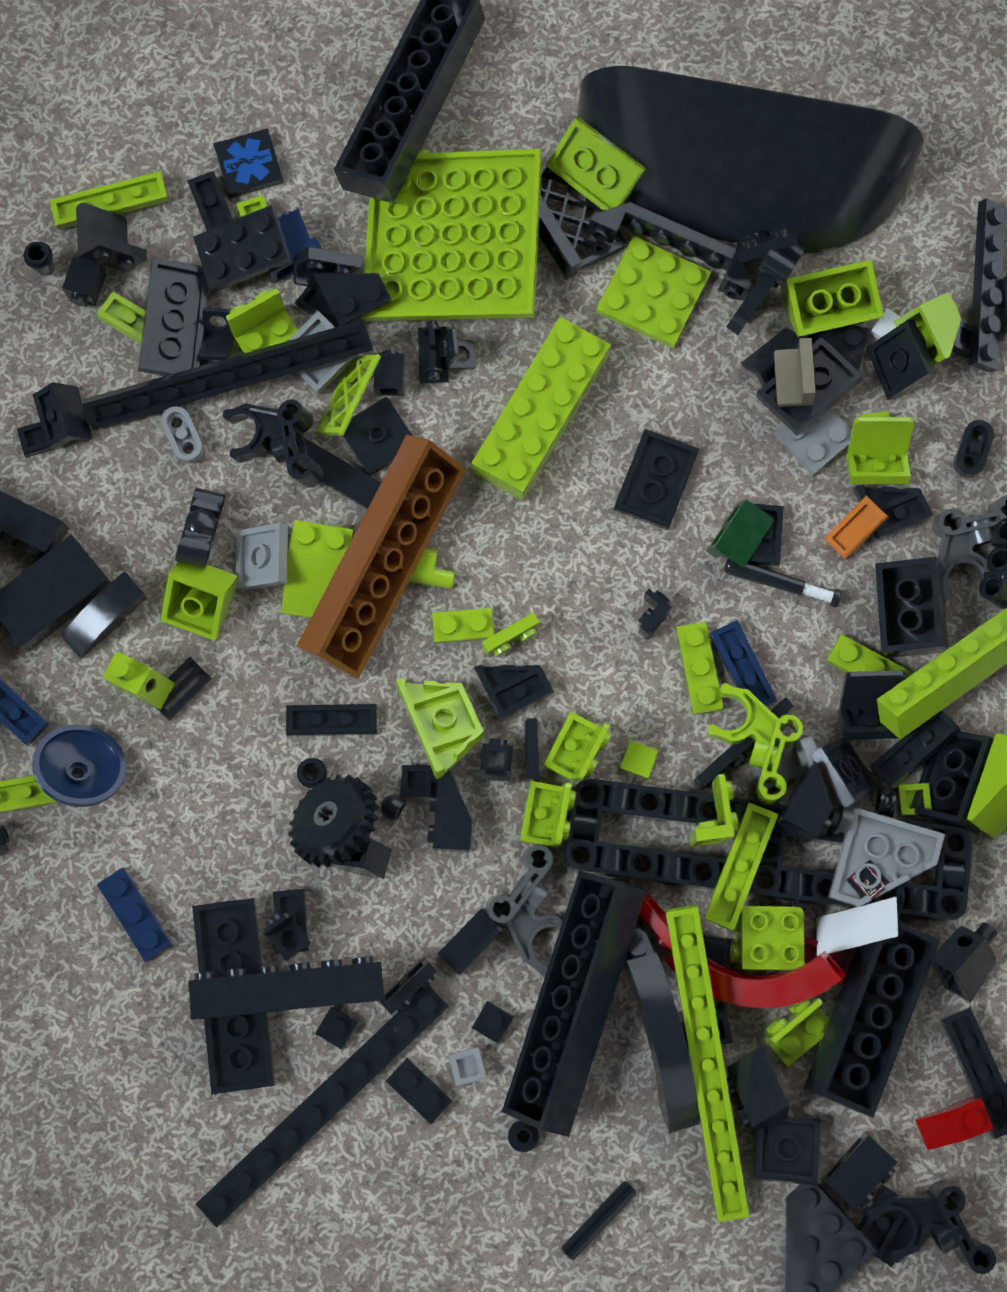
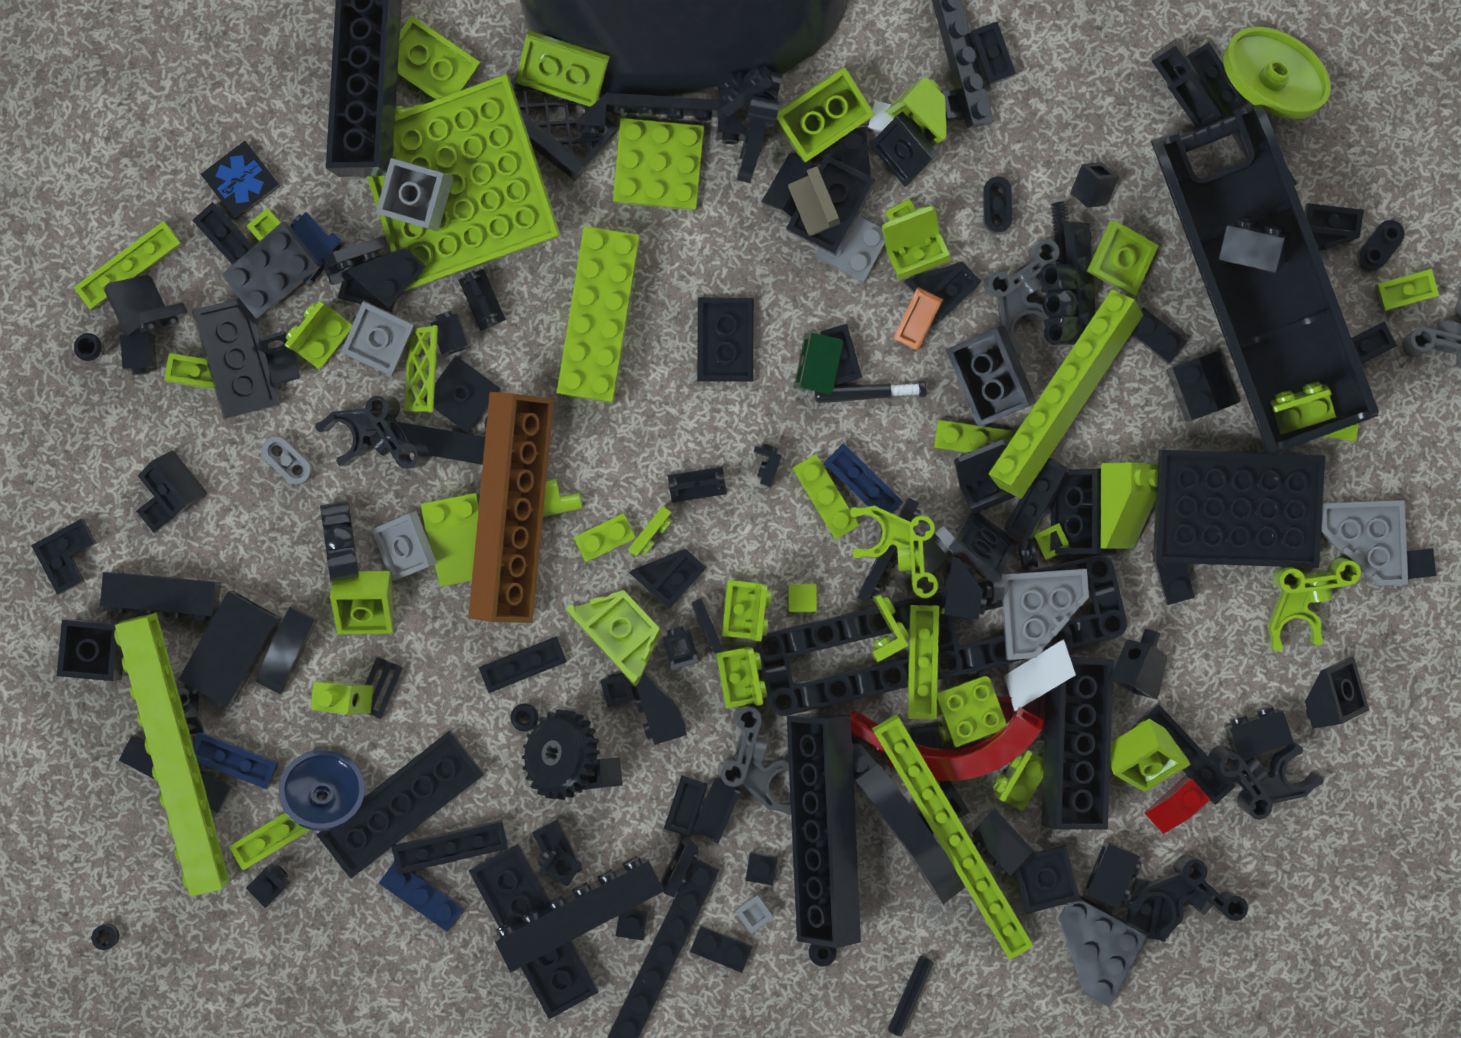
camera: 20 degrees left, 10 degrees up
(153, 812) = (402, 803): none -> black plate
(183, 874) = (449, 847): none -> black plate
(228, 374) = (306, 392): black plate -> none
(392, 807) = (605, 720): black hinge -> none
(408, 226) = (414, 194): none -> light grey brick
(439, 926) = (685, 806): none -> black tile
(449, 351) = (496, 294): black bracket -> none
(473, 119) = (433, 61): none -> lime plate
(575, 608) = (697, 484): none -> black hinge
(868, 877) = (1034, 630): black tile -> none
(940, 1057) = (1146, 756): none -> lime slope

